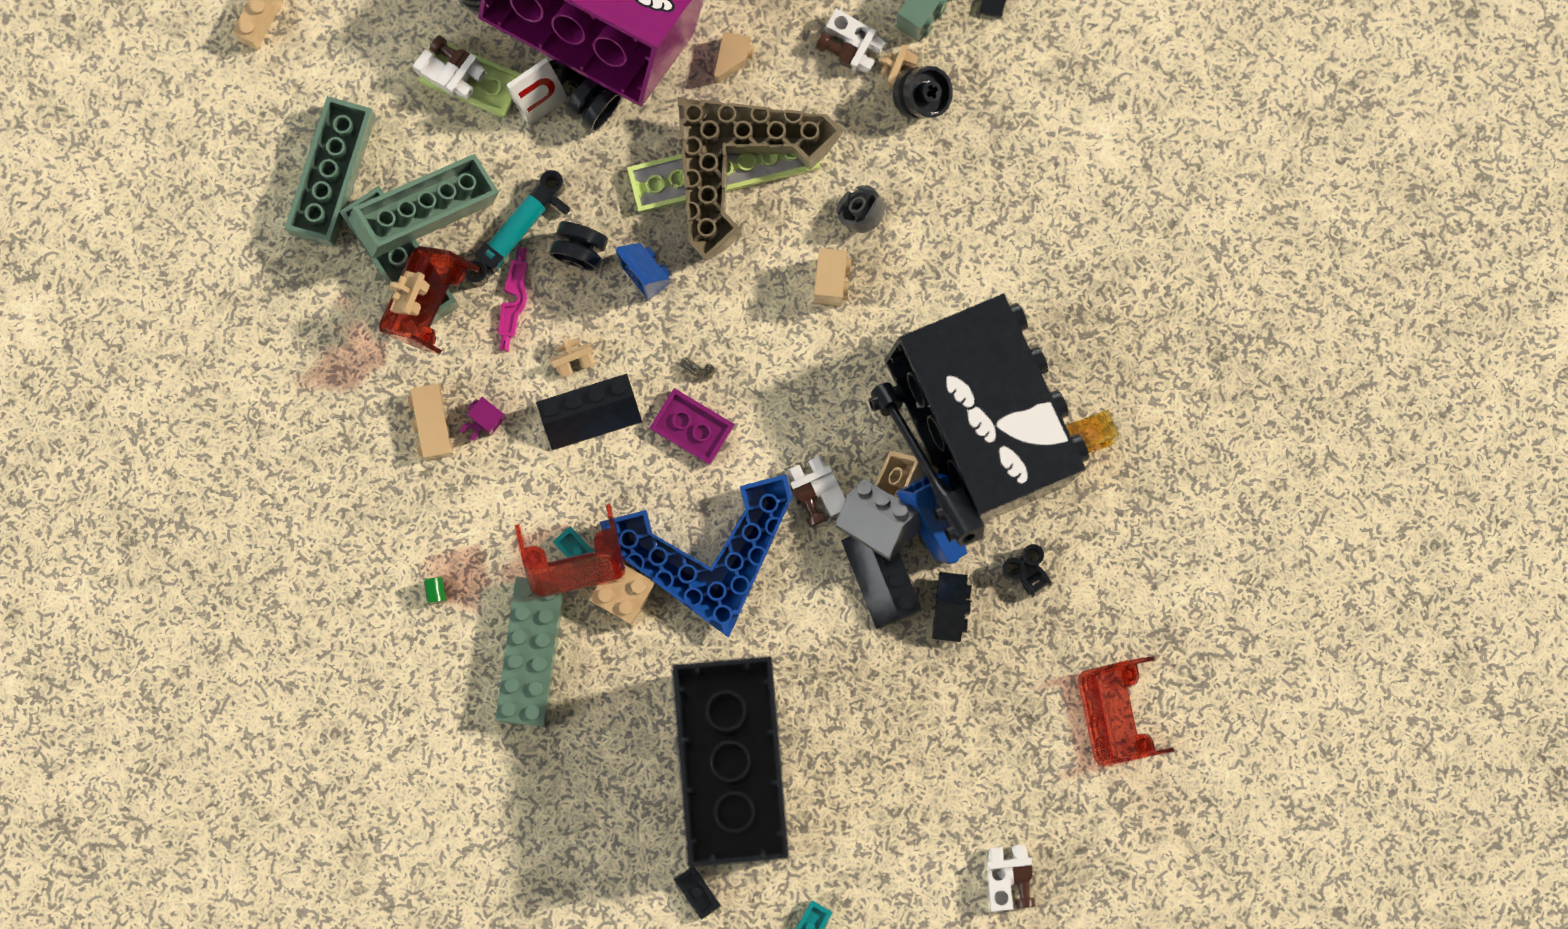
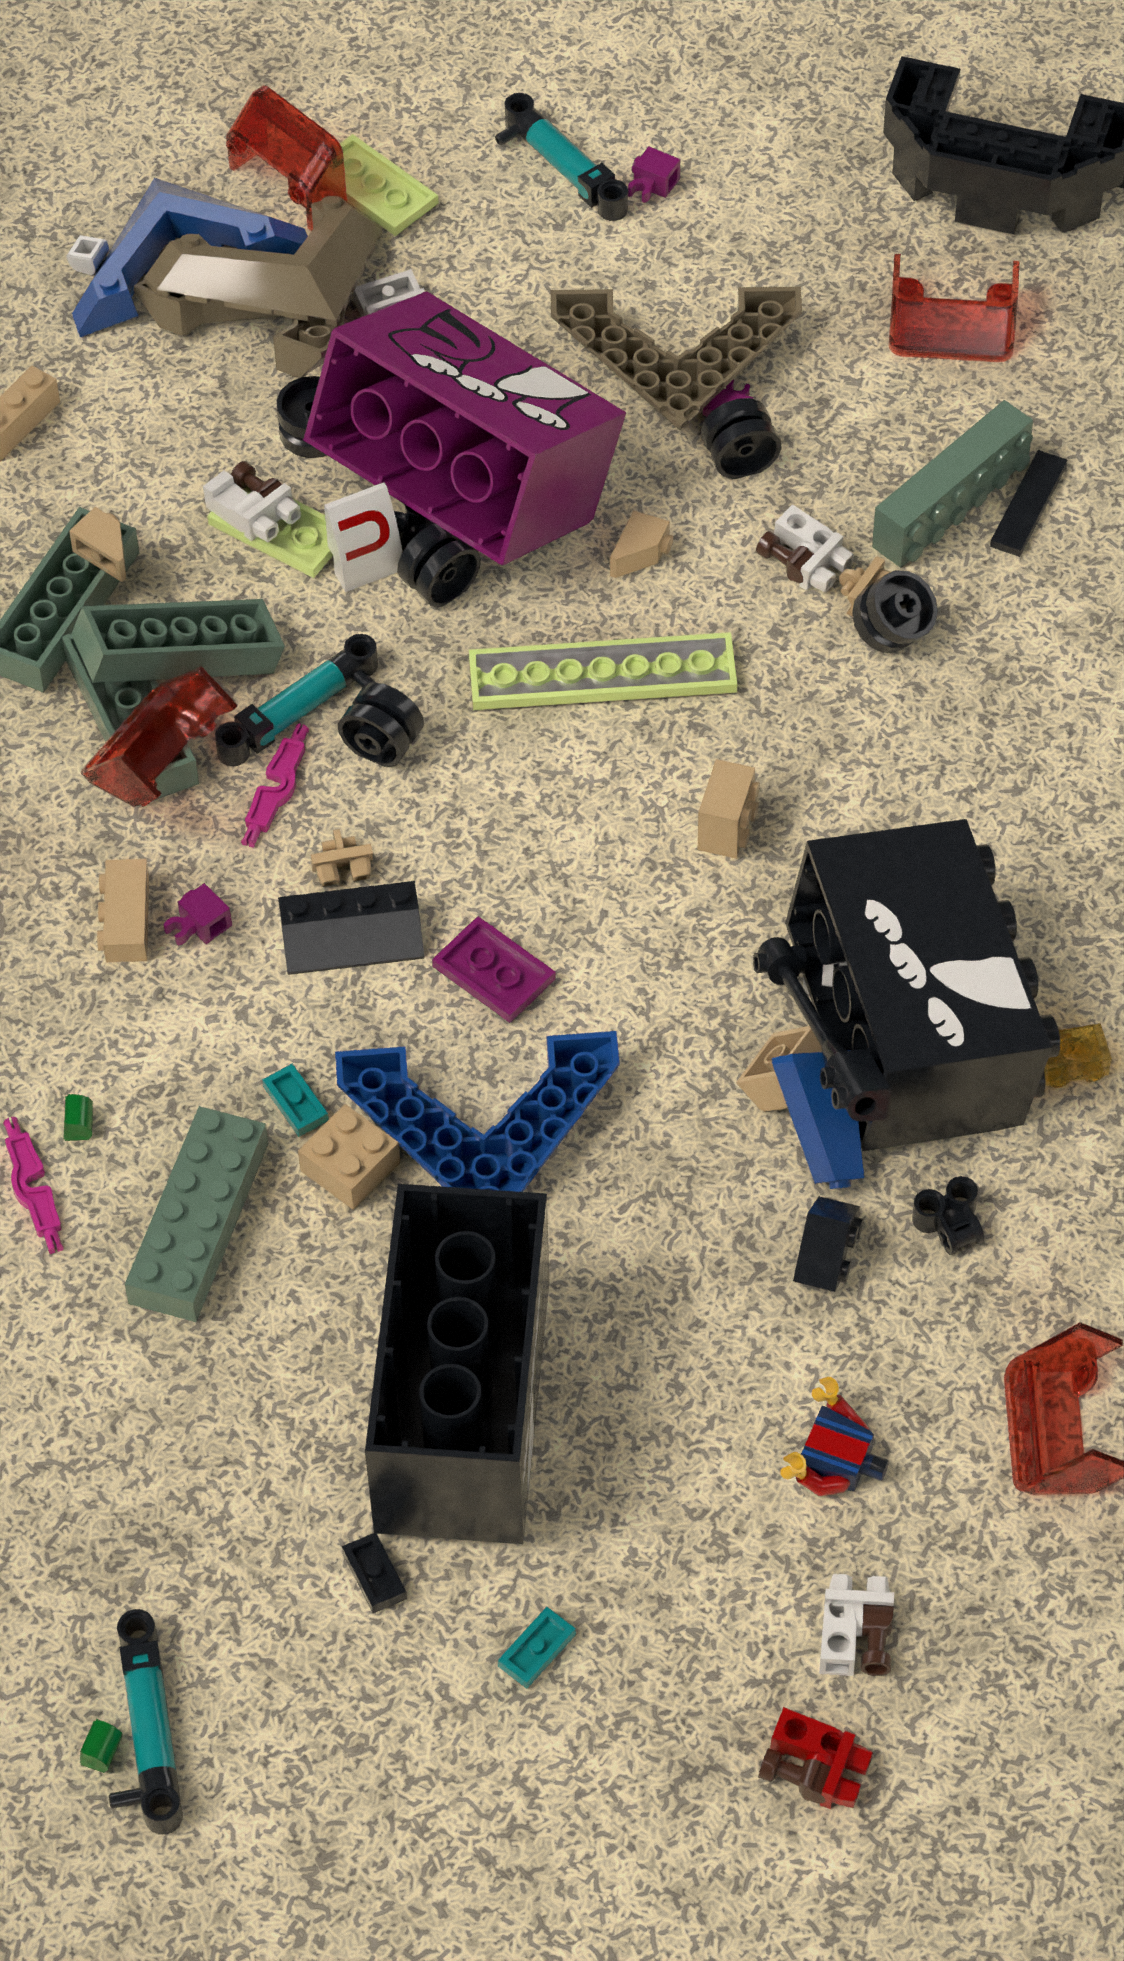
camera: 10 degrees right, 25 degrees down
(351, 129) = (100, 542): none -> tan slope
(406, 292) = (127, 718): tan hips -> none
(421, 655) = (38, 1200): none -> dark pink piece
(574, 572) = (288, 1095): clear red windscreen -> none
(643, 269) = (462, 764): blue slope -> none
(694, 369) = (516, 903): clear smoke arm -> none
(715, 129) = (606, 615): dark tan wedge -> none
(816, 485) = (655, 1063): white hips -> none
(861, 209) = (786, 741): dark grey cylinder -> none
(878, 519) = (740, 1099): slope -> none
(882, 583) = (733, 1191): black slope -> none
(978, 757) = (835, 1449): none -> torso

